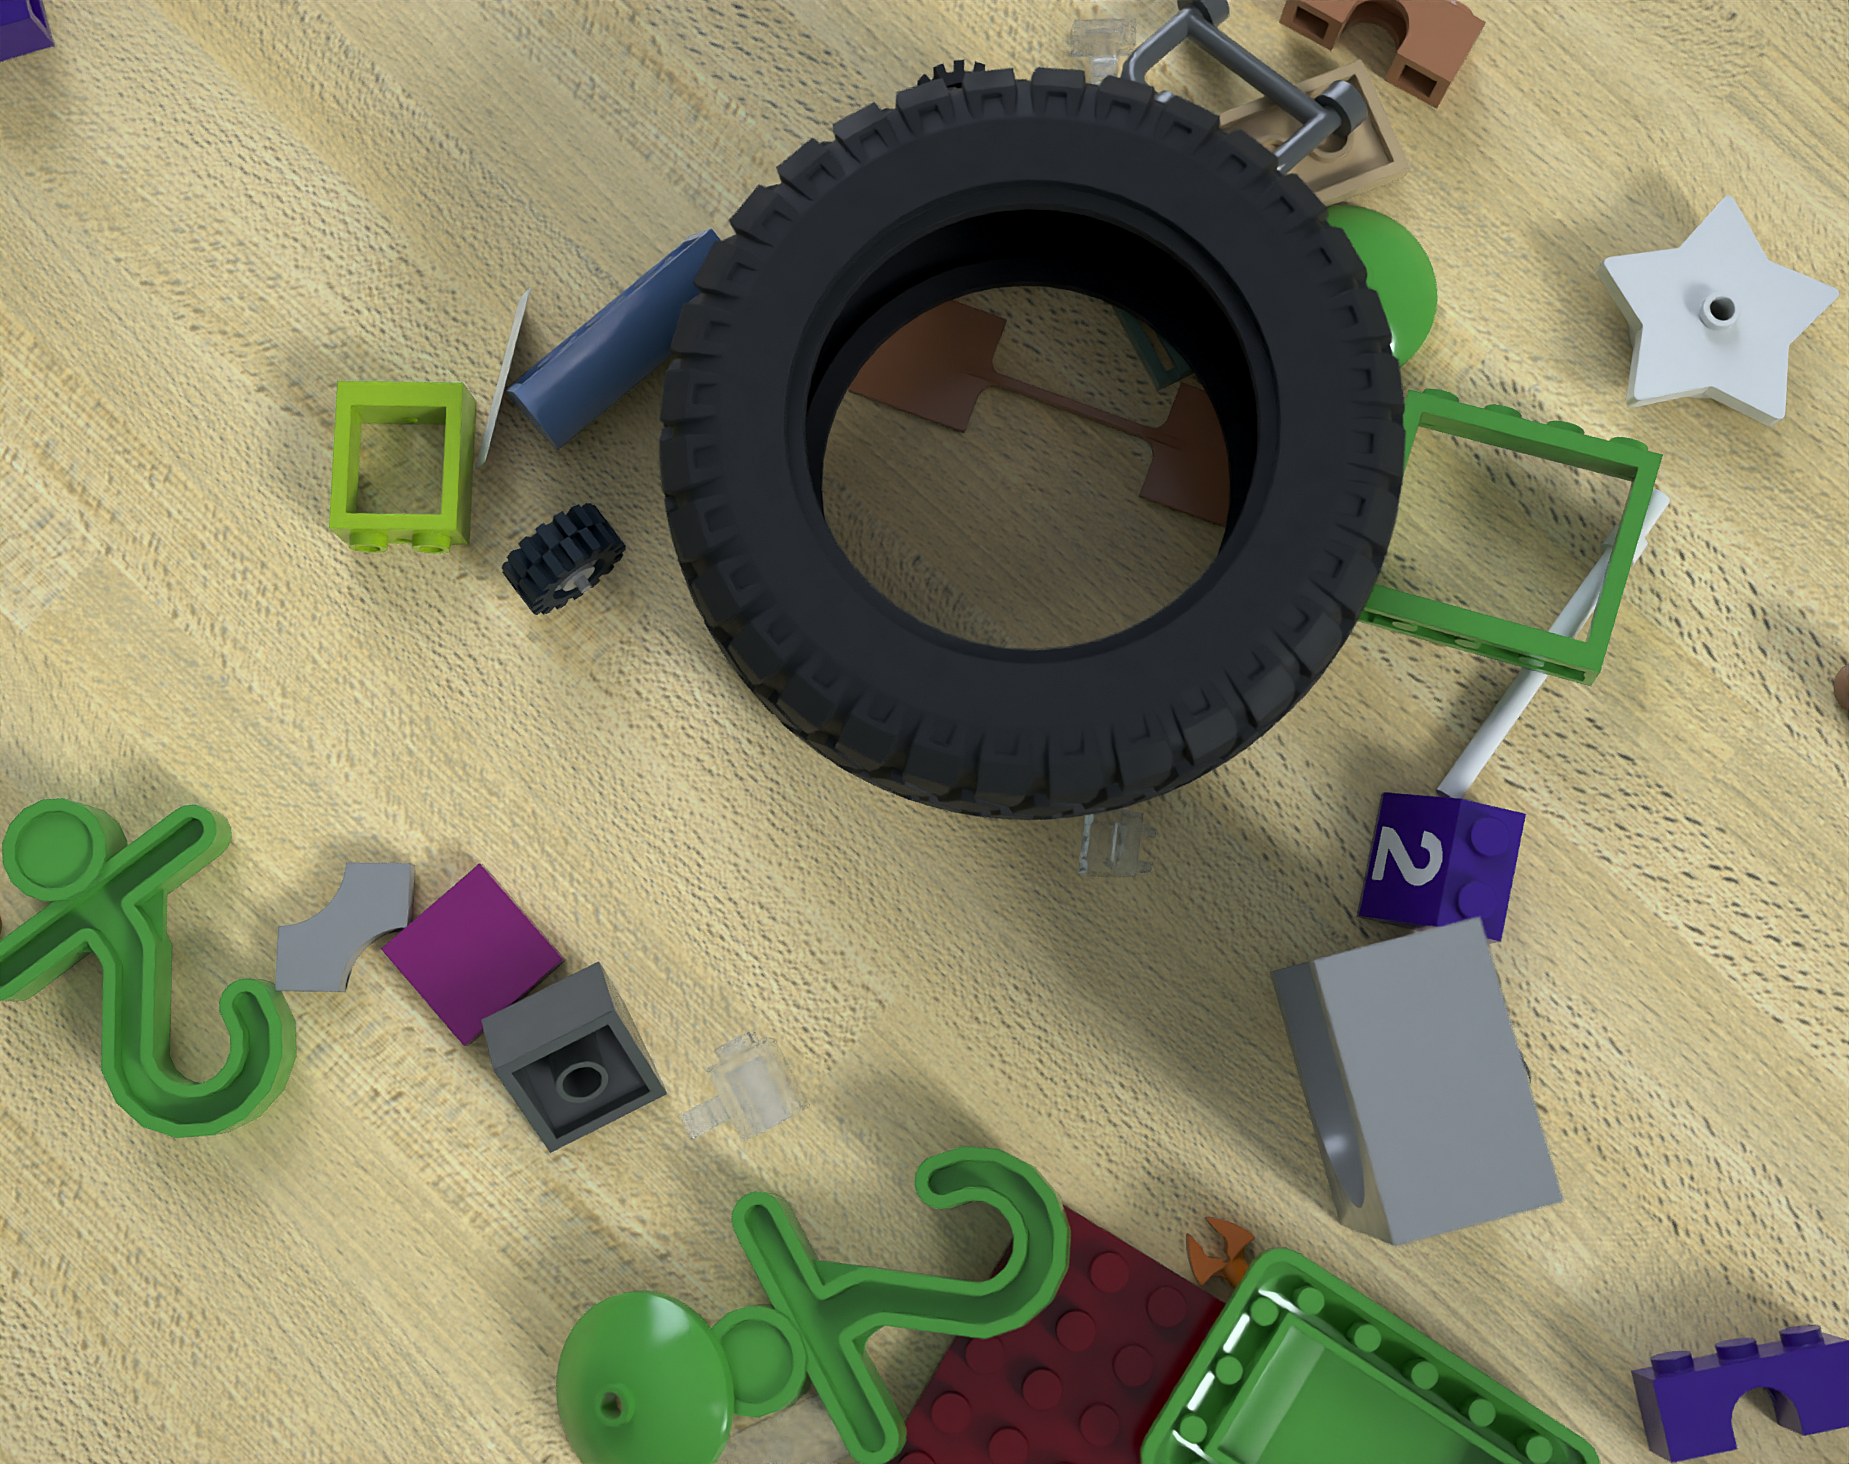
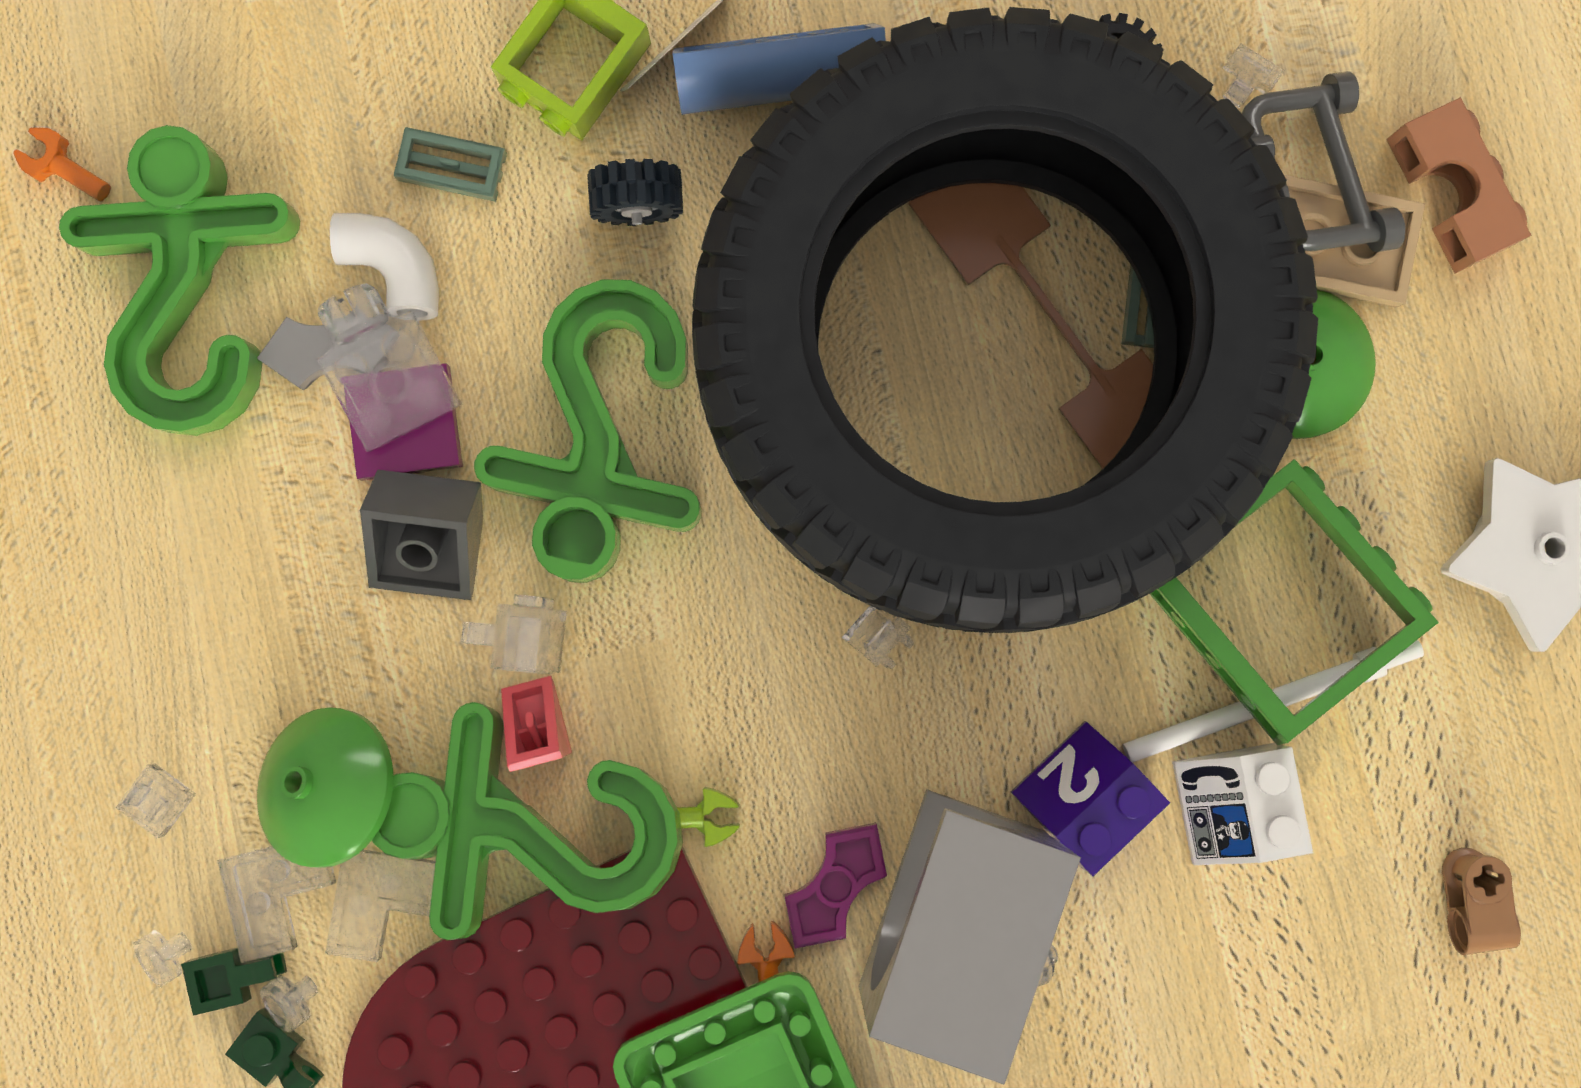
camera: 30 degrees right, 5 degrees up
(355, 786) = (395, 253): none -> white cylinder
(356, 679) = (483, 191): none -> sand green tile
(417, 911) = (382, 368): none -> clear plate
(716, 877) = (596, 479): none -> bright green piece
(820, 1177) = (533, 724): none -> coral slope
(1053, 1163) = (695, 816): none -> lime bar
(1245, 1164) = (821, 906): none -> magenta tile
(1599, 771) = (1242, 806): none -> white slope

